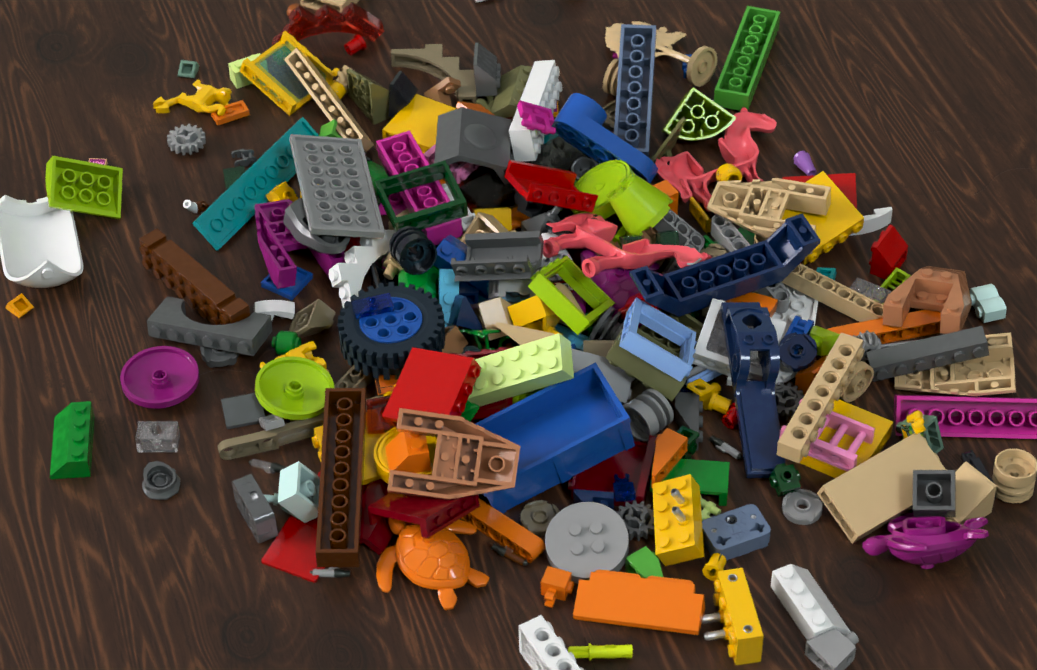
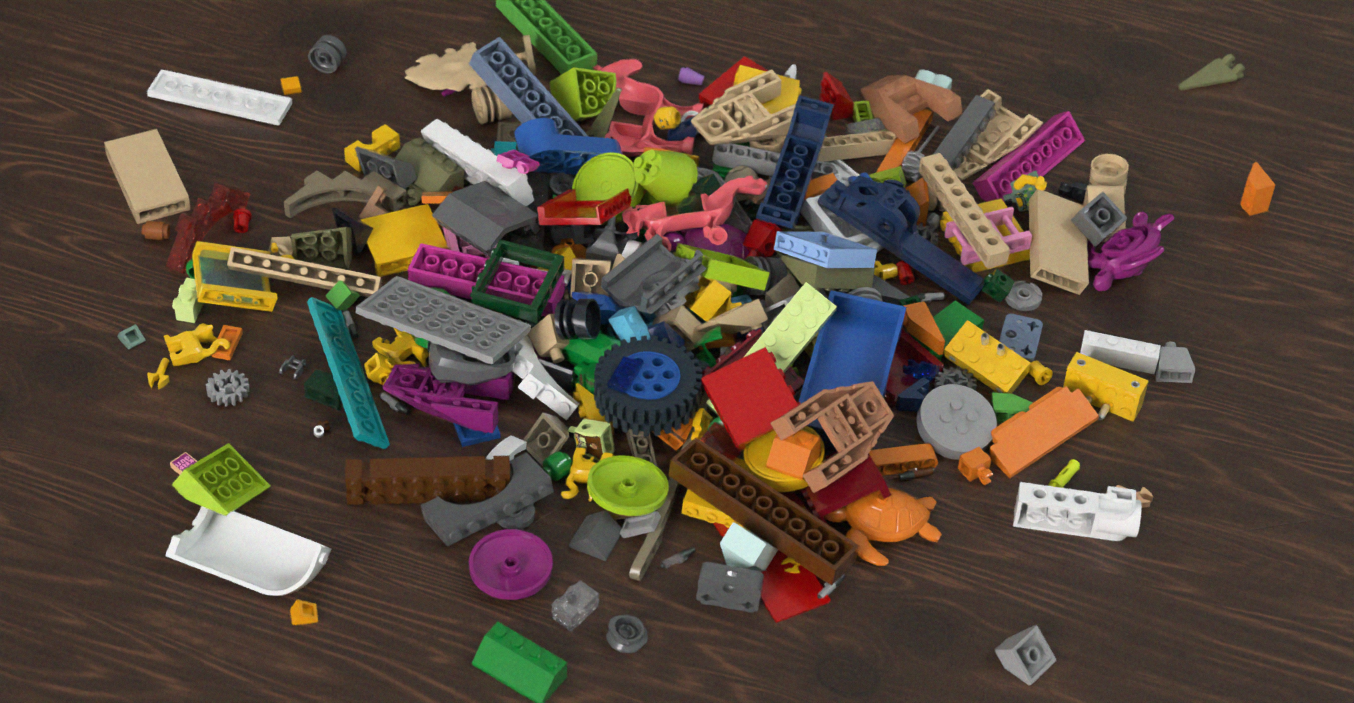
camera: 55 degrees left, 0 degrees up
(330, 342) = (594, 437): none -> yellowish green torso
(510, 60) = (383, 141): none -> yellow arch
(537, 516) = (897, 434): dark tan tile -> none

